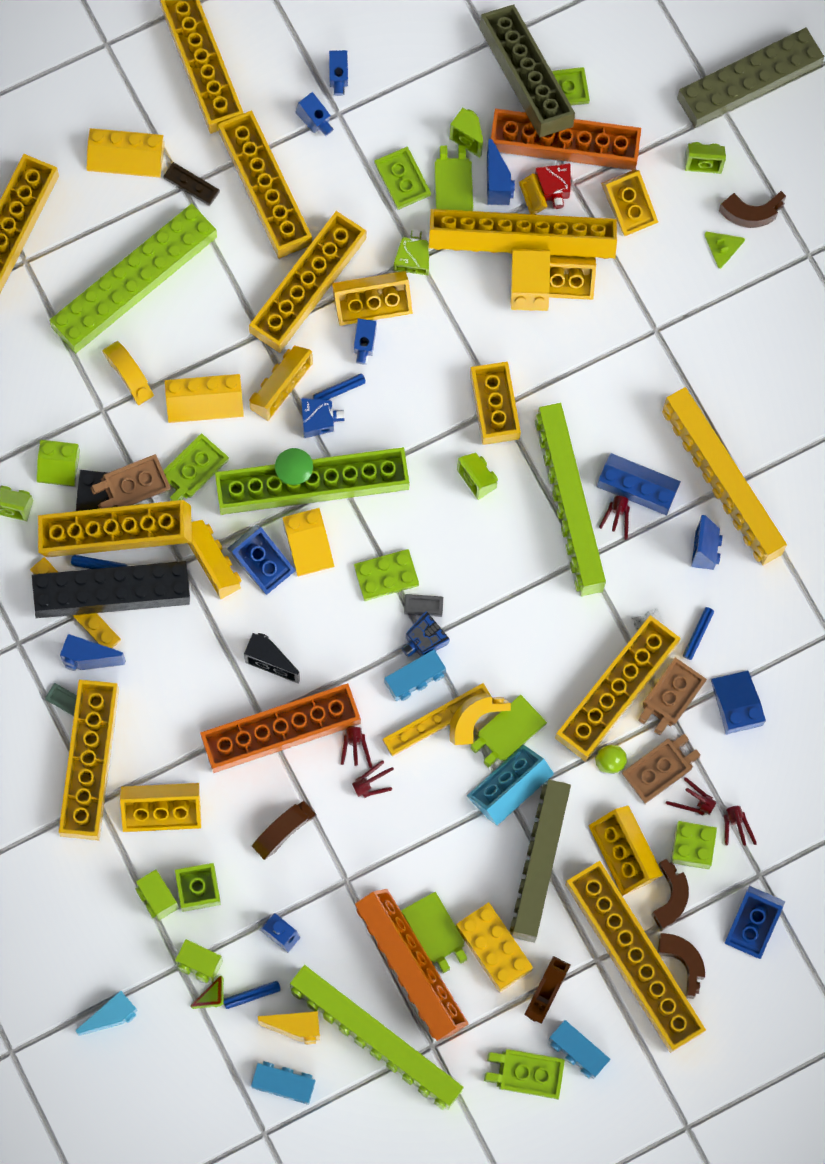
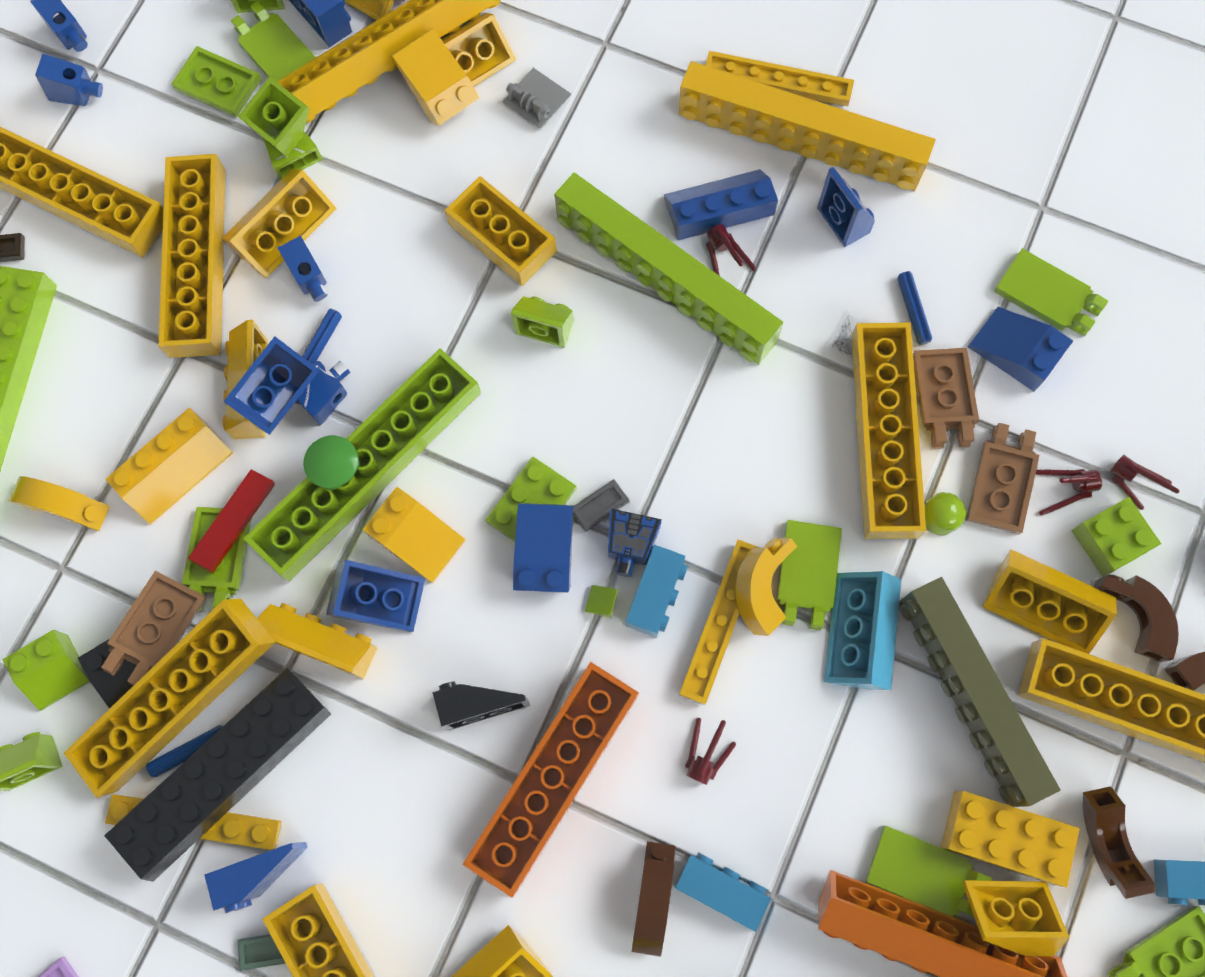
camera: 30 degrees left, 0 degrees up
(215, 456) = (231, 521): none -> red tile
(294, 398) = (271, 385): none -> blue slope
(322, 854) = (723, 891): none -> dark azure brick
(354, 736) = (644, 717): dark red plant -> none
(372, 604) = (543, 548): none -> blue slope
(382, 658) = (601, 601): none -> lime slope
(417, 237) = (276, 116): none -> lime slope
(460, 979) = (1017, 916): none -> yellow slope
(584, 334) = (536, 97): none -> light grey hinge
(739, 434) = (793, 80): none -> yellow plate
(784, 685) = (1050, 293): none -> lime tile

